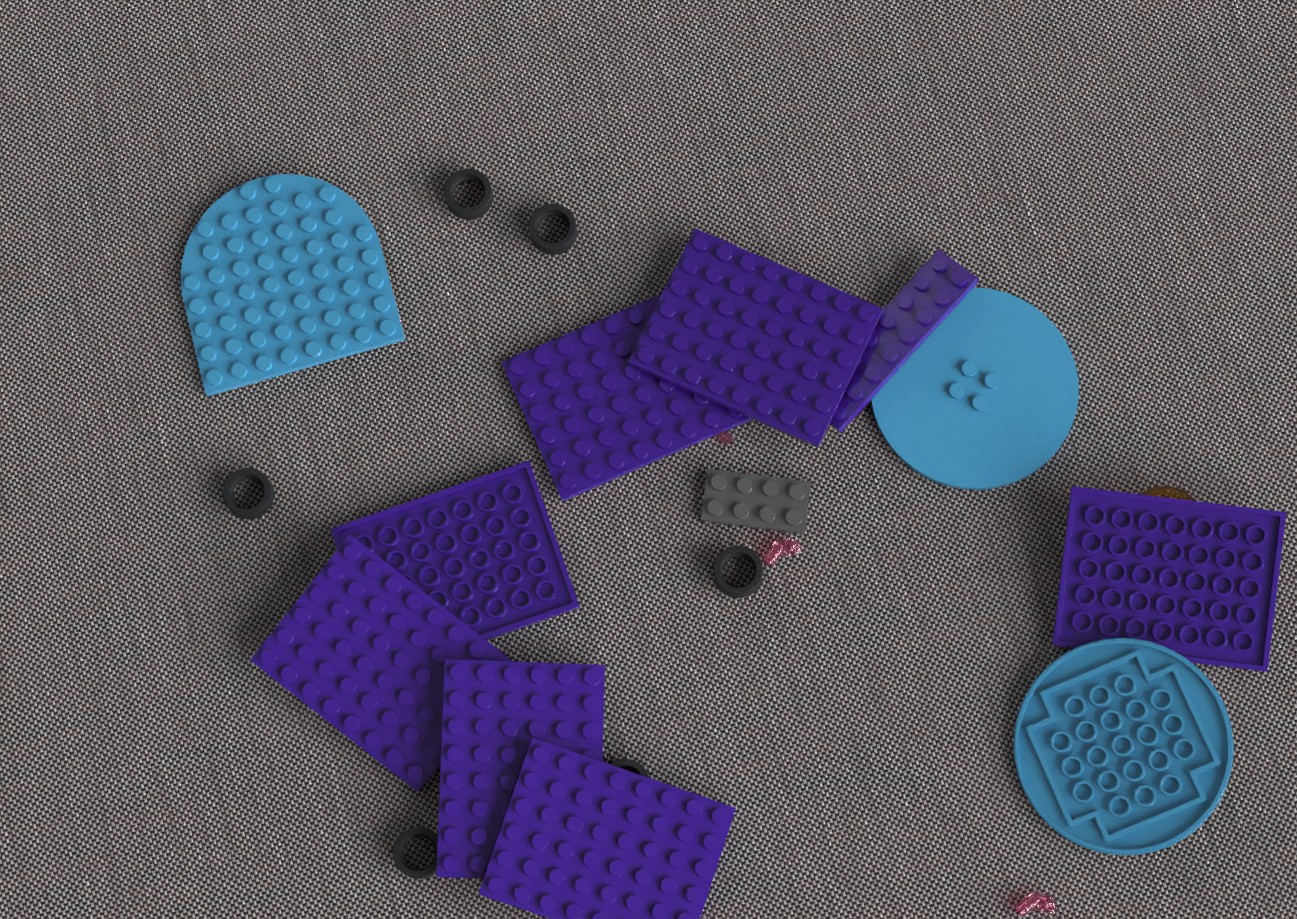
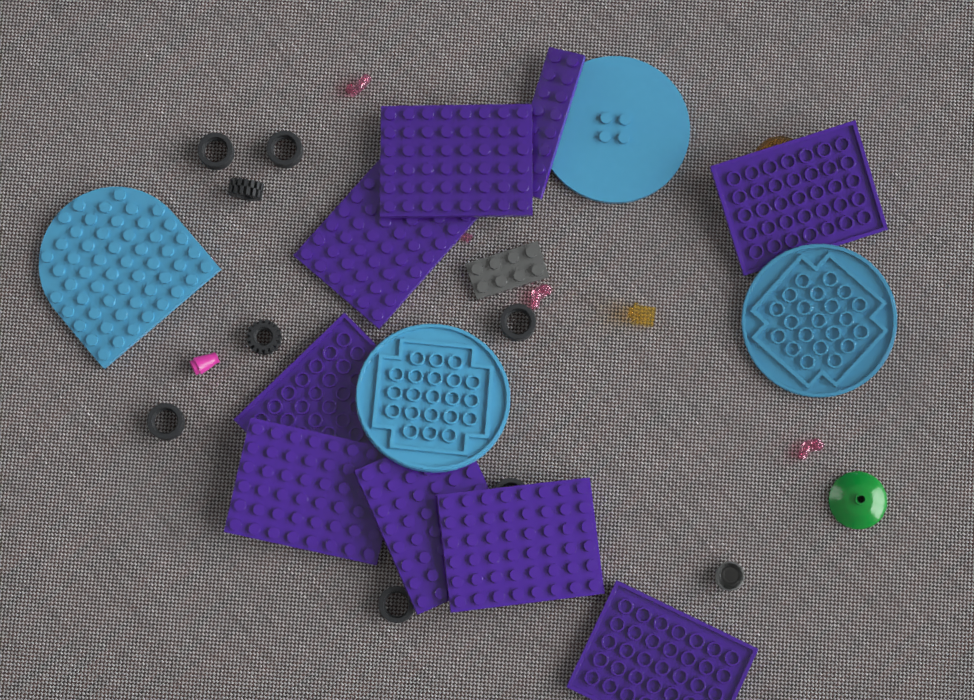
camera: 30 degrees left, 5 degrees up
(328, 443) = (203, 363): none -> dark pink cone
(409, 432) = (264, 348): none -> black tyre
(481, 255) = (245, 189): none -> black tyre
(586, 616) = (432, 398): none -> dark azure plate
(683, 193) = (360, 86): none -> clear pink arm
(899, 635) = (641, 315): none -> clear yellow bracket

